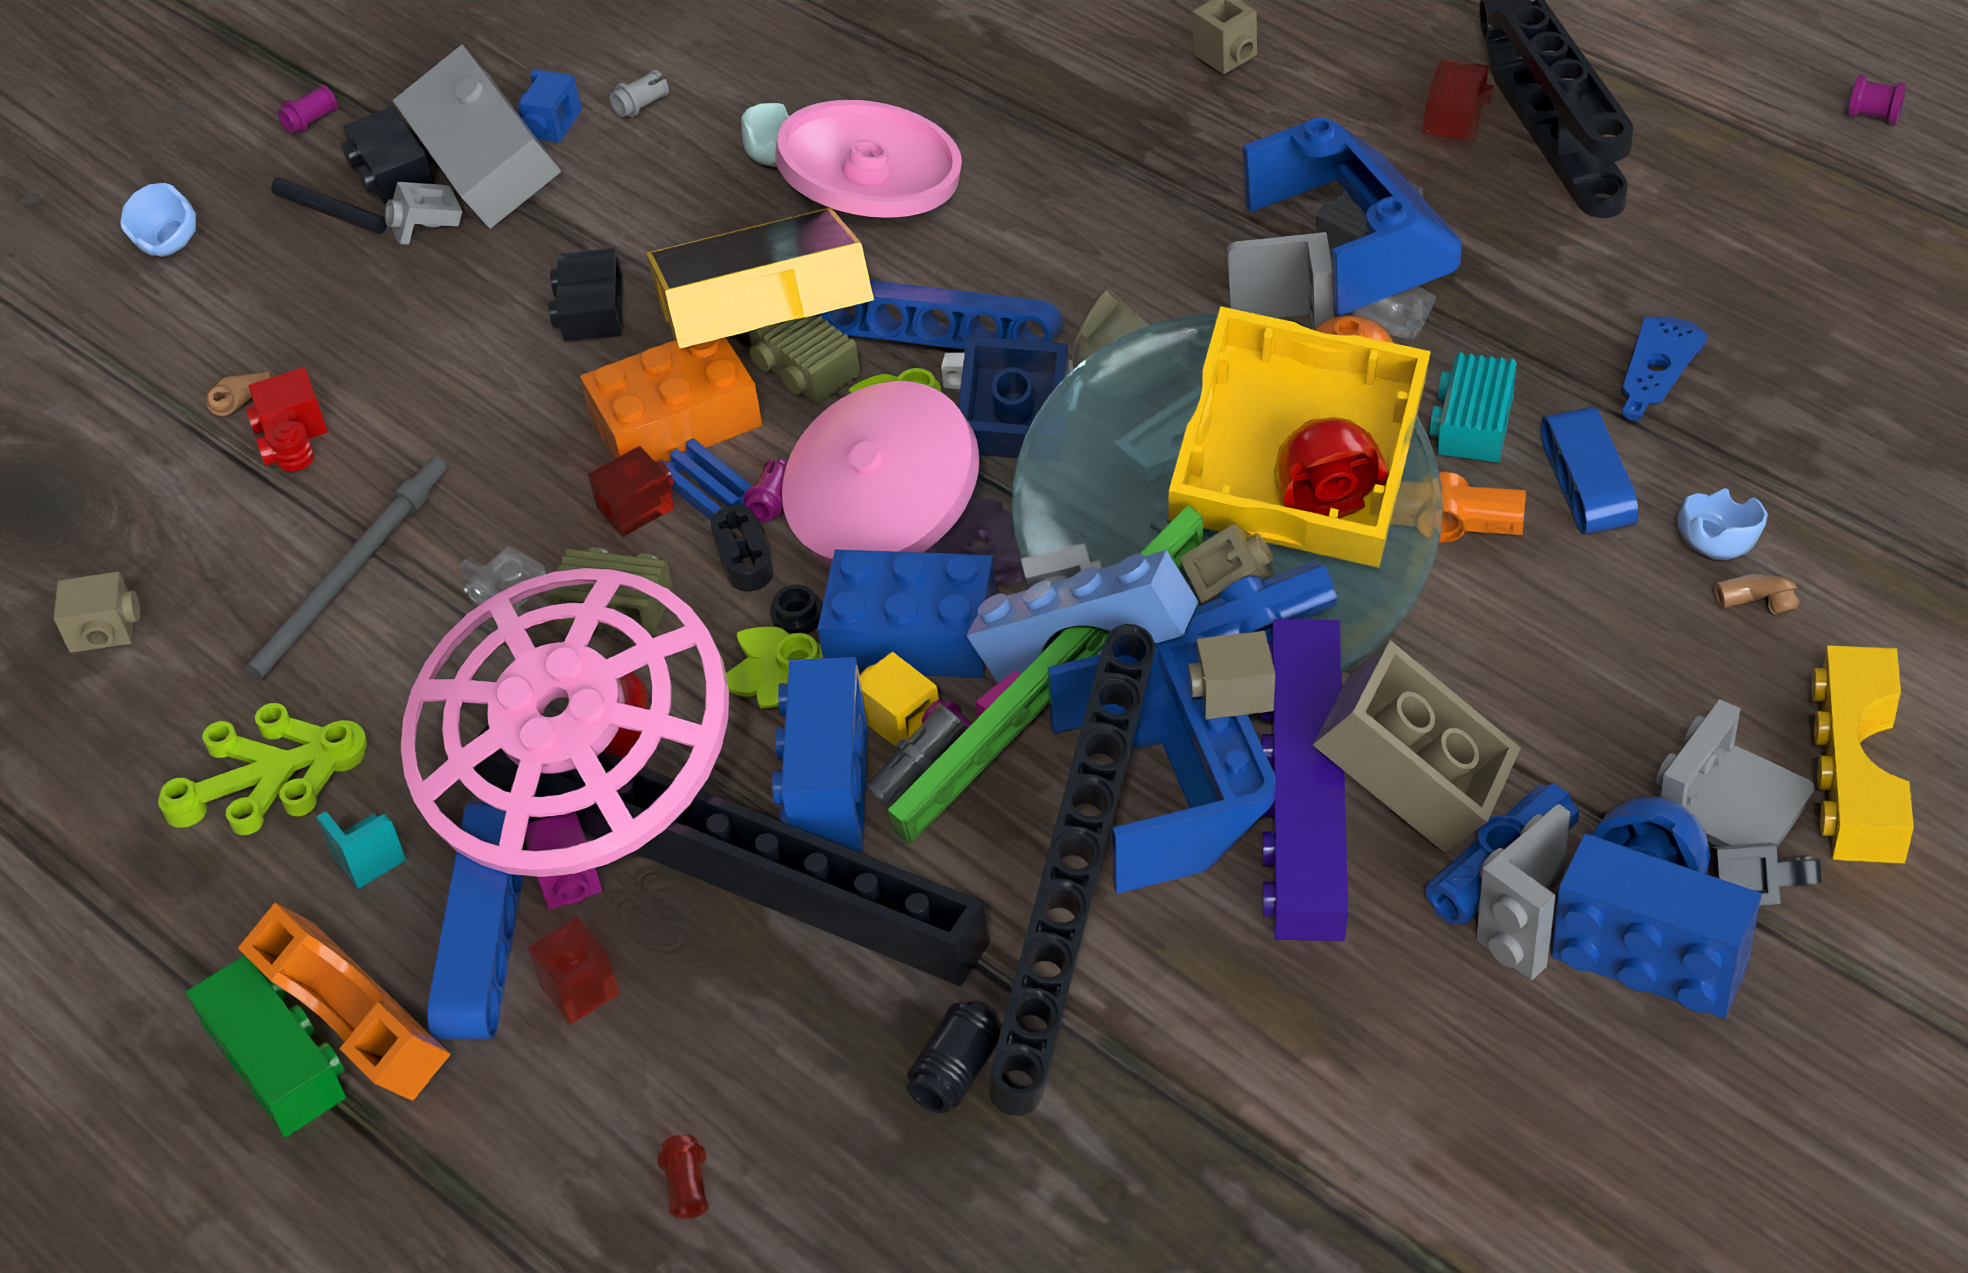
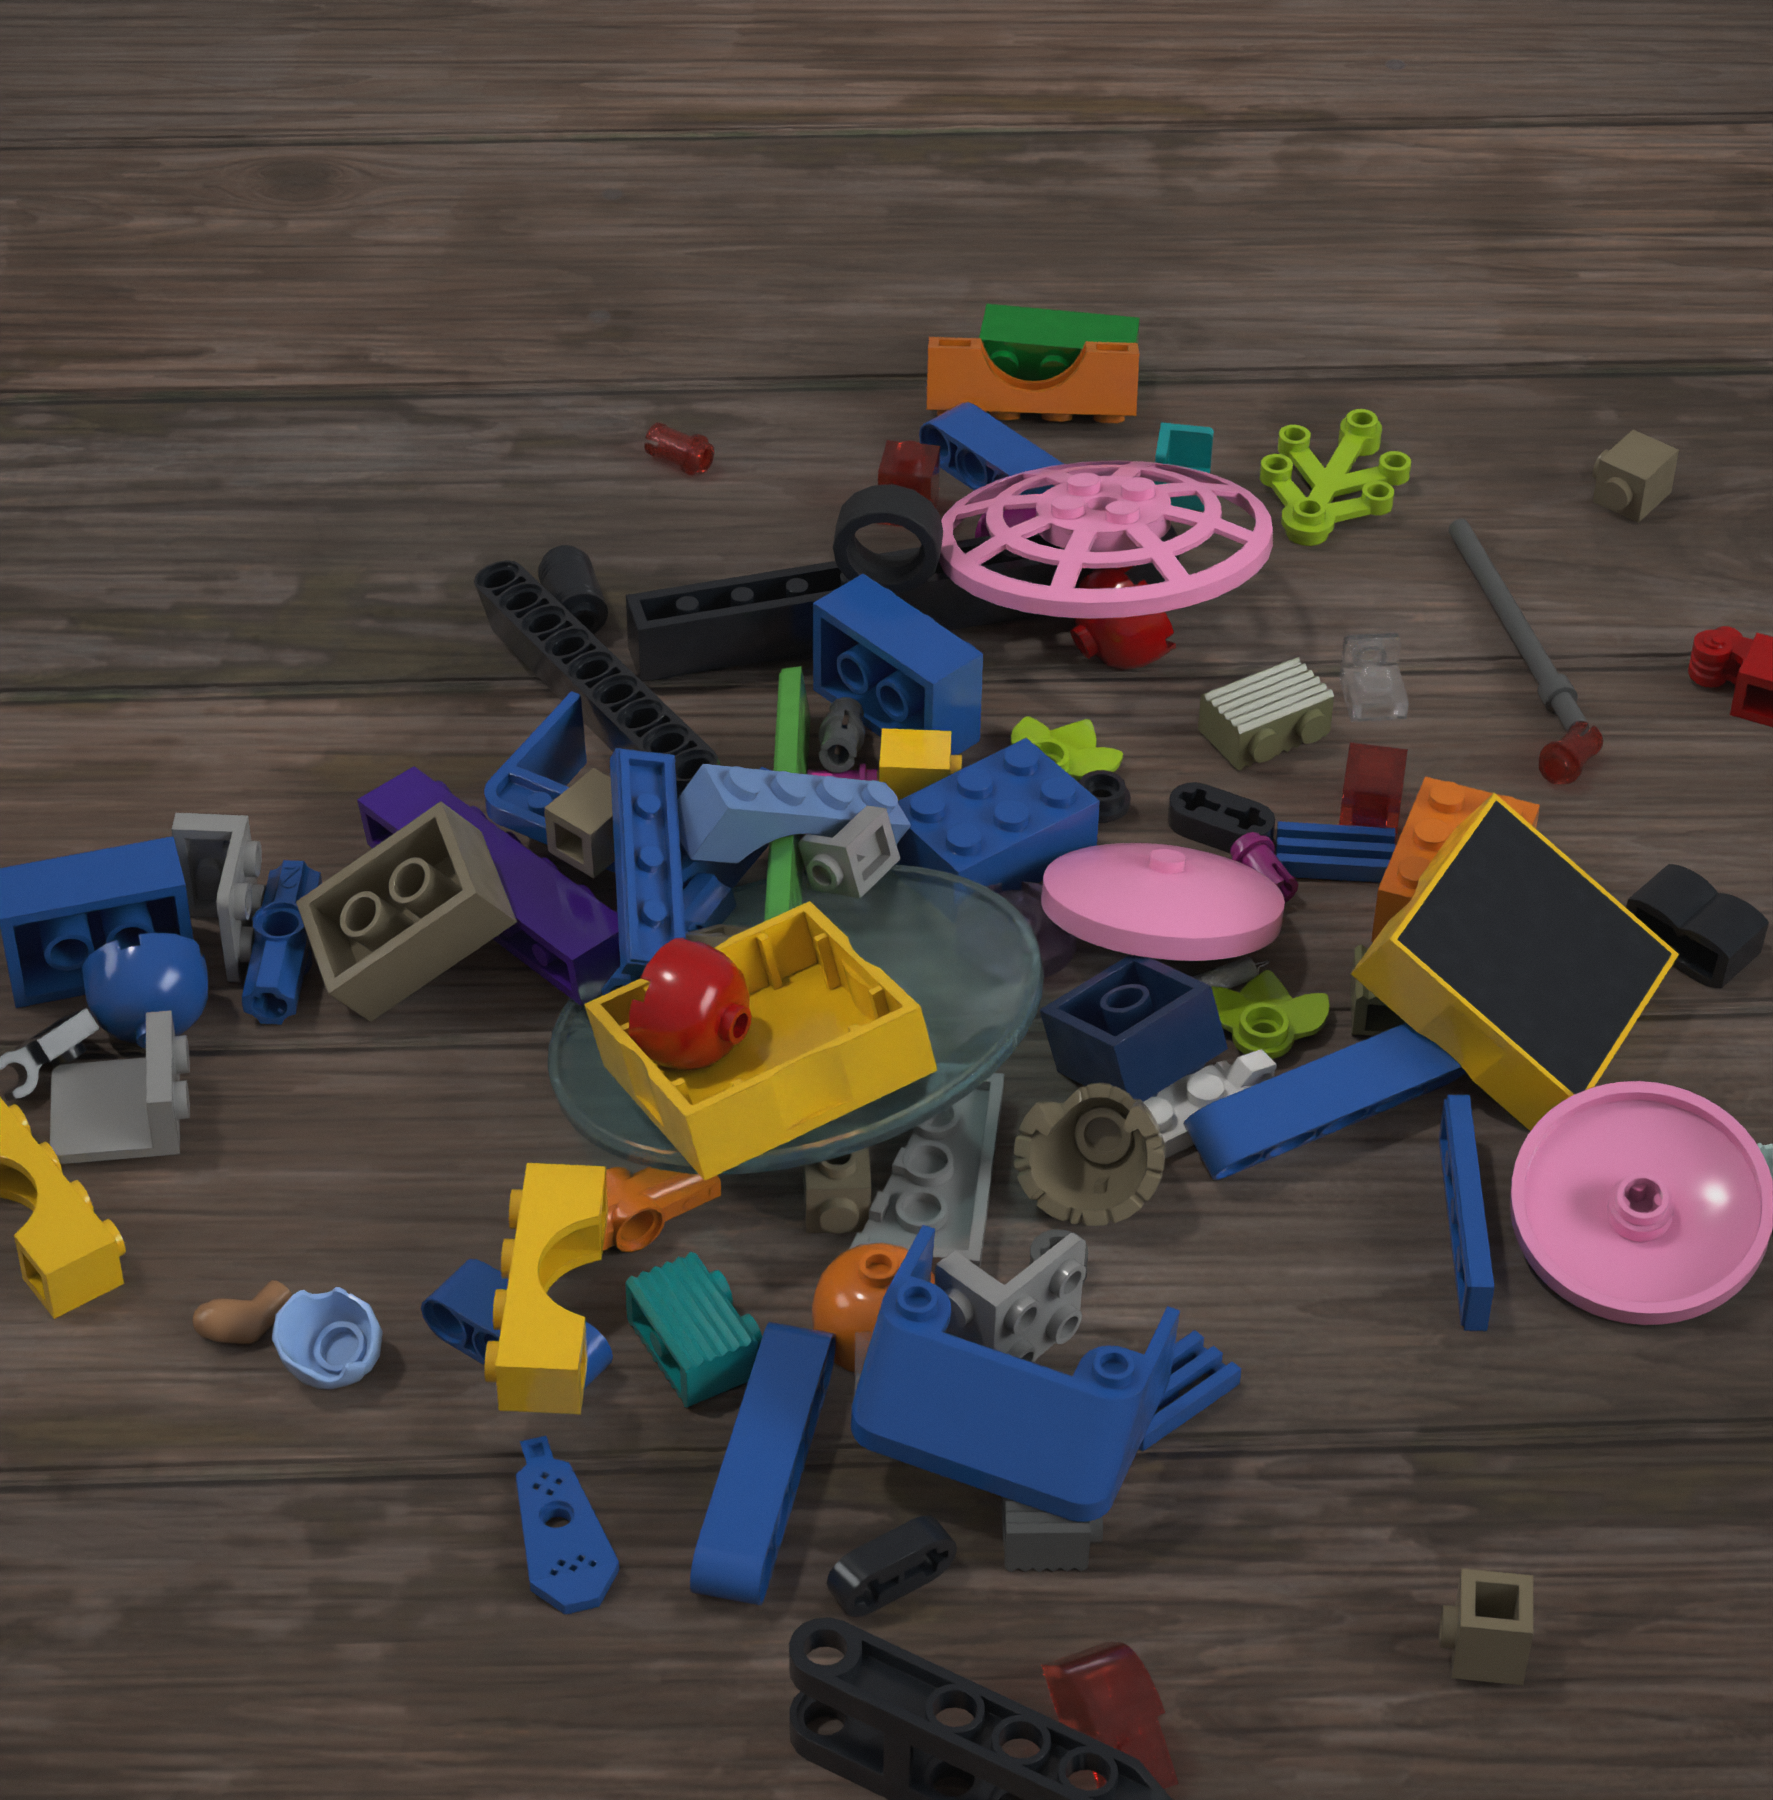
camera: 130 degrees right, 5 degrees down
(473, 447) = (1563, 759): none -> clear red pin
(736, 788) = (894, 506): none -> black tyre
(954, 222) = (1466, 1213): none -> blue tile
(1208, 241) = (1189, 1363): none -> blue tile
(1238, 598) = (646, 855): none -> blue tile
(1493, 230) = (891, 1566): none -> black beam
(1516, 311) = (763, 1464): none -> blue beam
(1525, 458) = (540, 1344): none -> yellow arch

